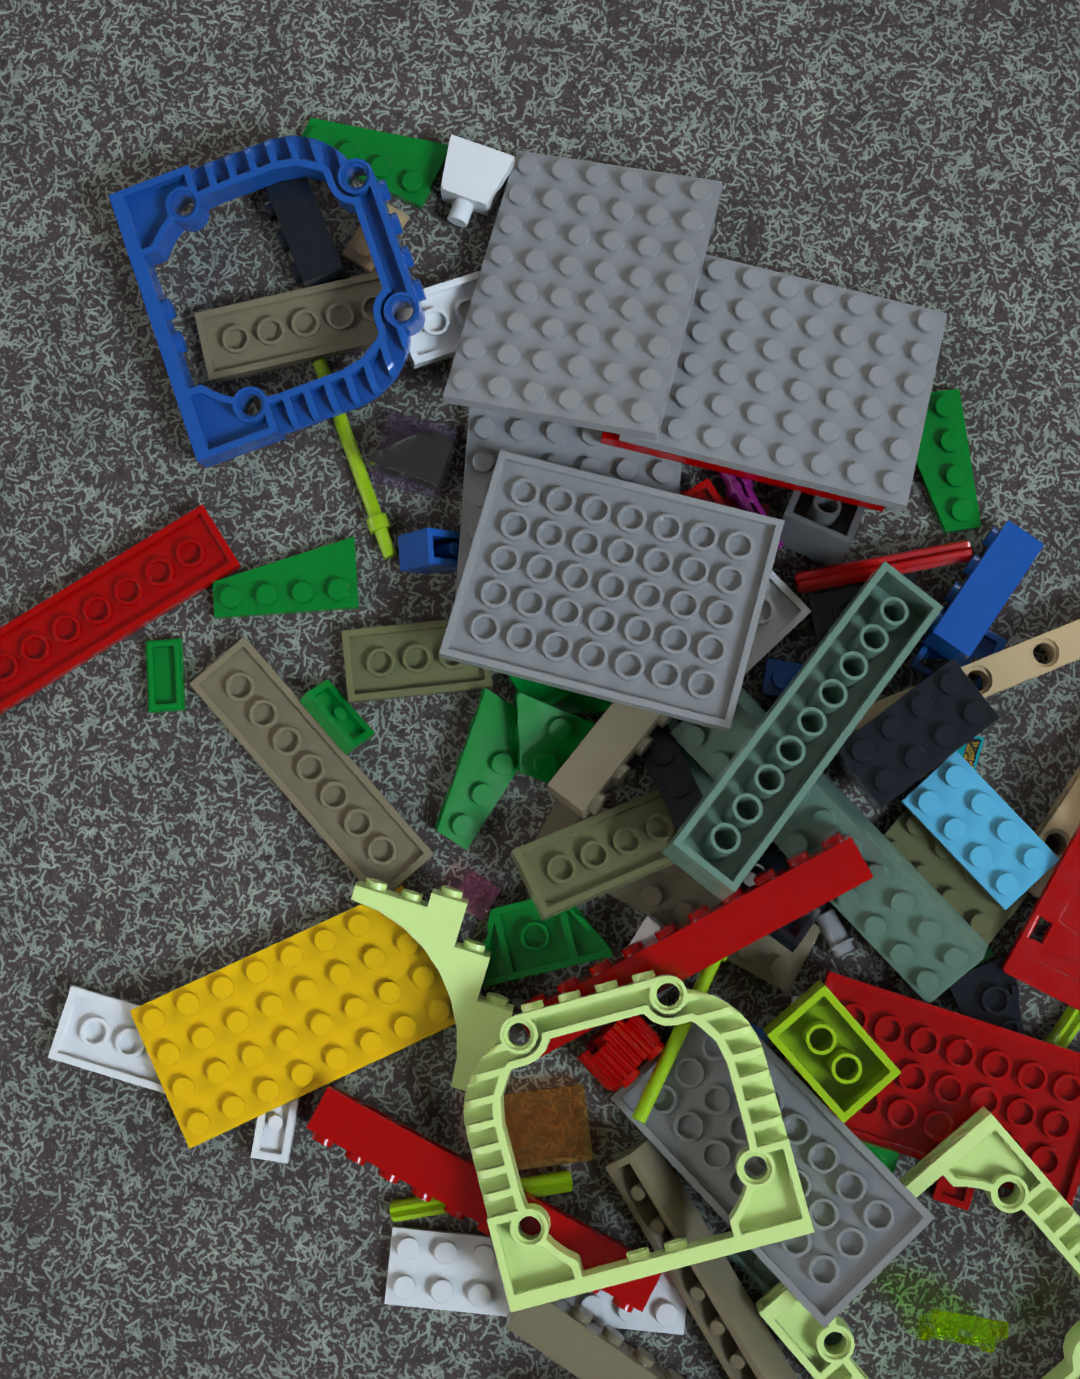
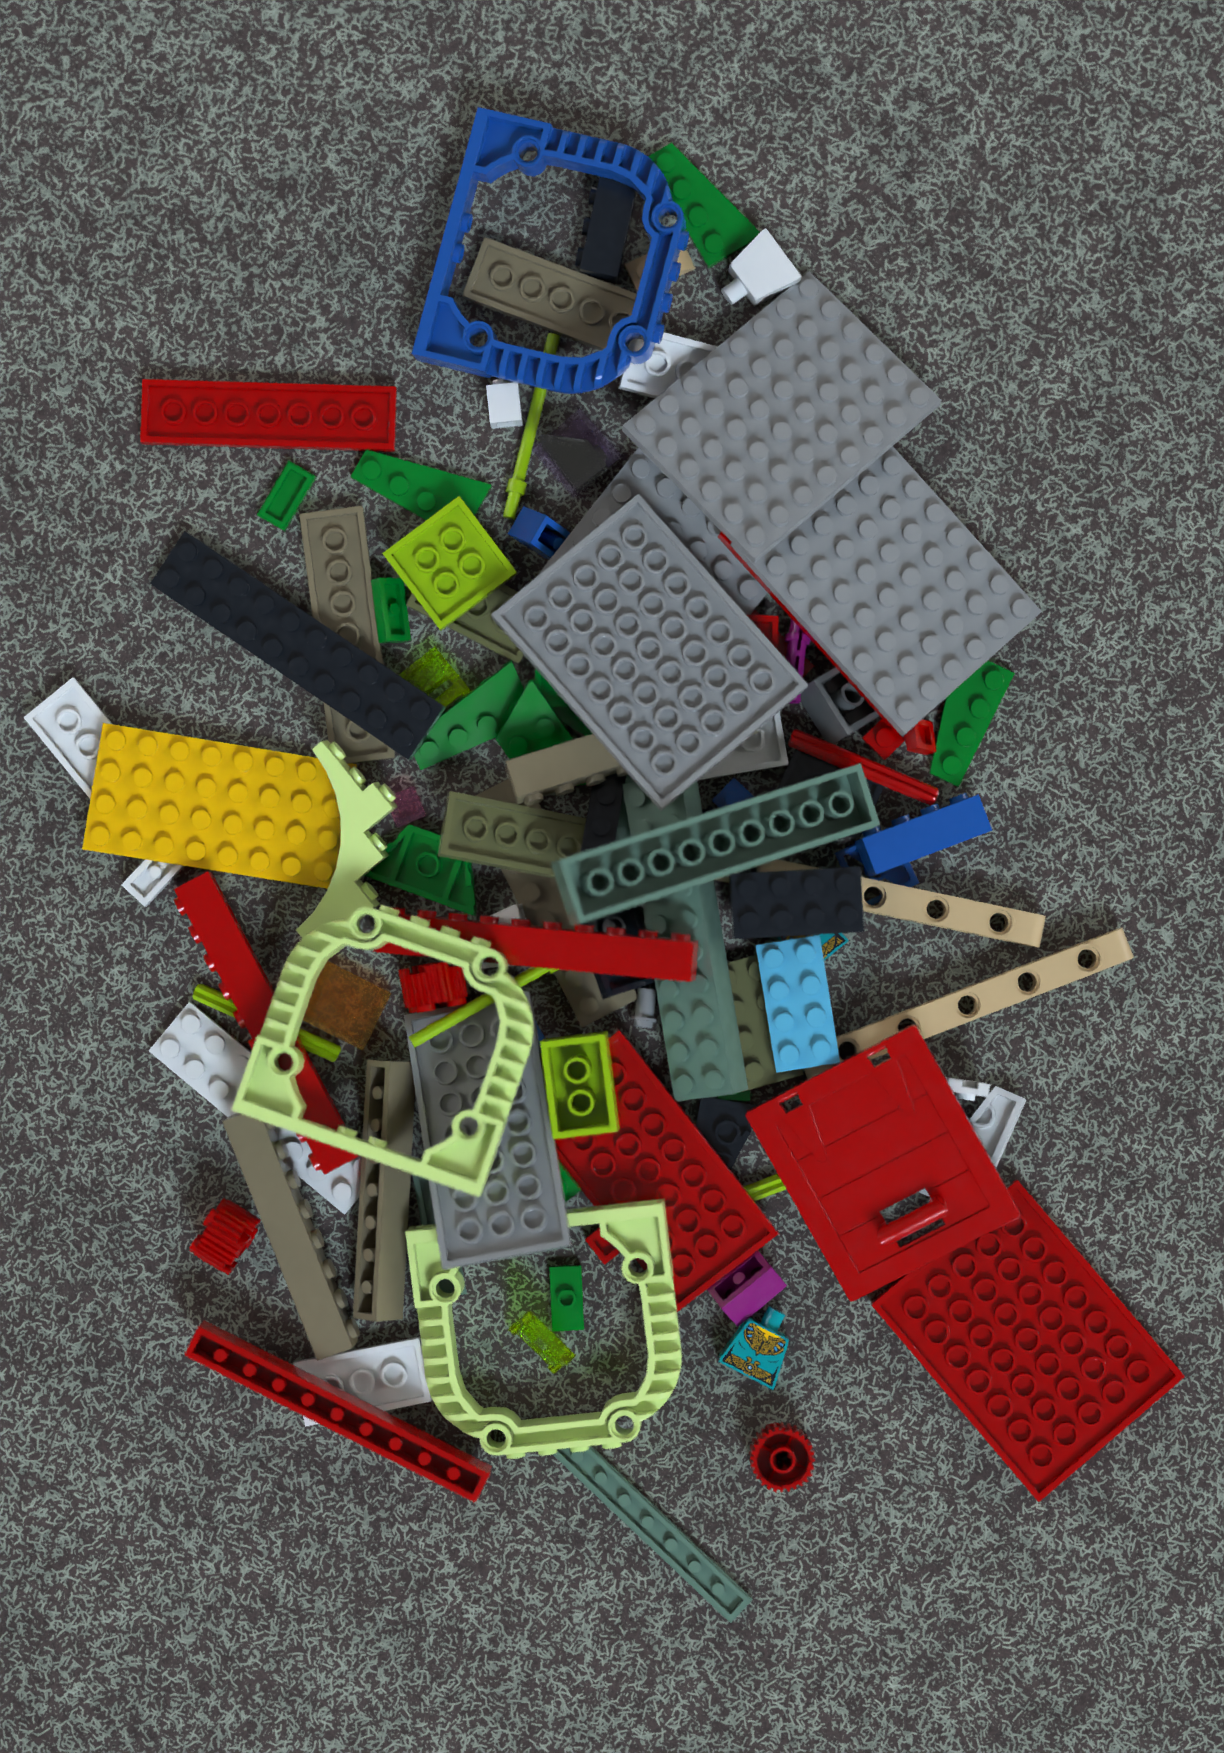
camera: 35 degrees right, 5 degrees up
(270, 809) = (298, 645): none -> black plate
(315, 453) = (504, 404): none -> white brick
(364, 634) = (450, 563): none -> lime plate
(410, 764) = (431, 672): none -> clear neon green plate
(881, 529) = (883, 739): none -> red plate
(919, 506) = (921, 738): none -> red plate
(952, 1268) = (566, 1298): none -> green plate

